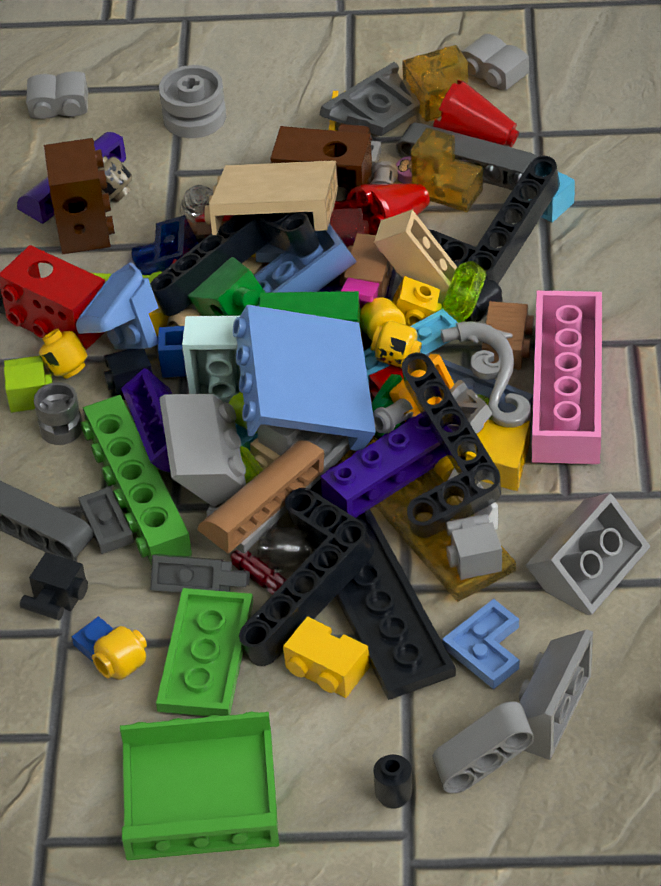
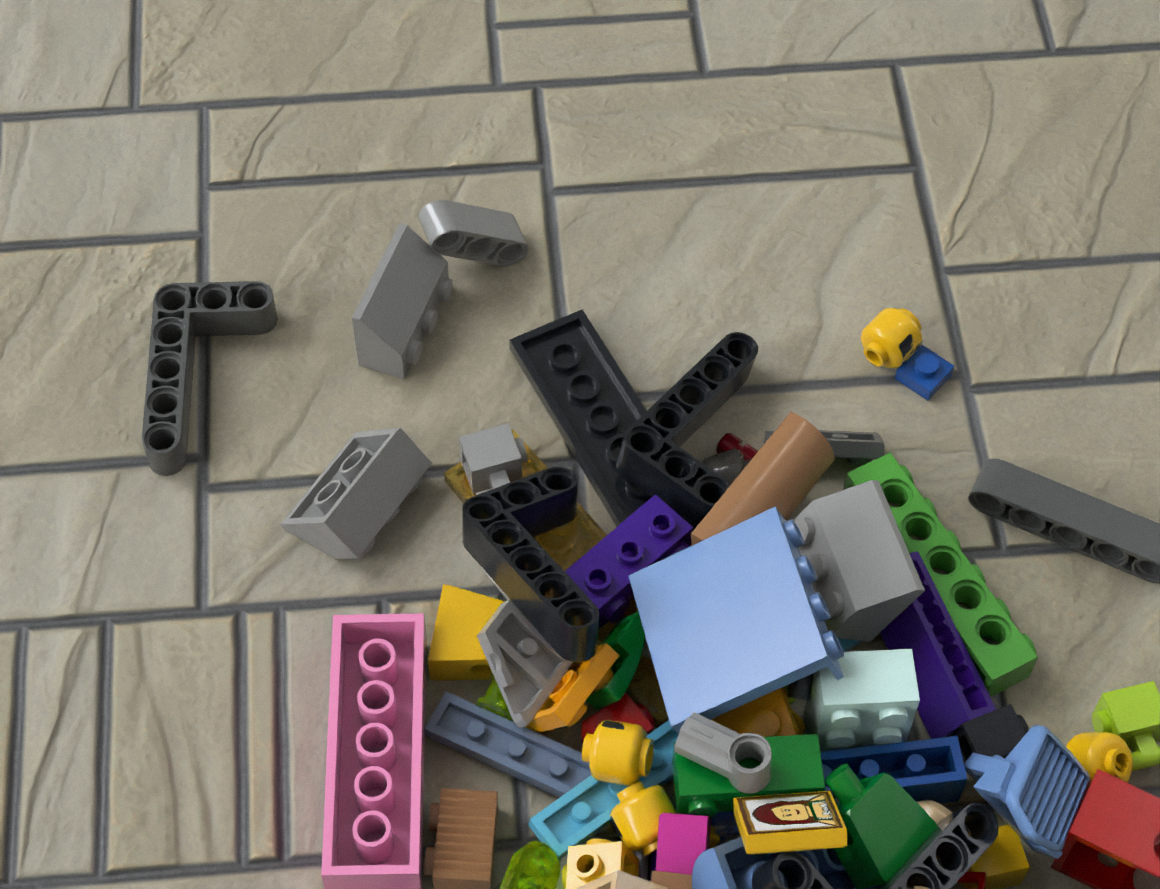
camera: 170 degrees right, 10 degrees up
(55, 586) = (991, 421): black brick -> none
(58, 413) = (1070, 661): flat silver wheel -> none
(106, 520) = (963, 517): dark grey plate -> none
(198, 786) = (768, 209): bright green panel -> none
(204, 653) = (796, 354): bright green plate -> none
(289, 258) = (789, 822): none -> tile
(316, 293) = (722, 749): none -> light grey piece
(325, 659) = (655, 346): yellow brick -> none
(387, 418) = (614, 615): light grey pin -> none
(393, 781) = (566, 212): black brick -> none
(478, 647) = (485, 375): medium blue plate -> none
(484, 369) = (477, 786): light grey plant -> none

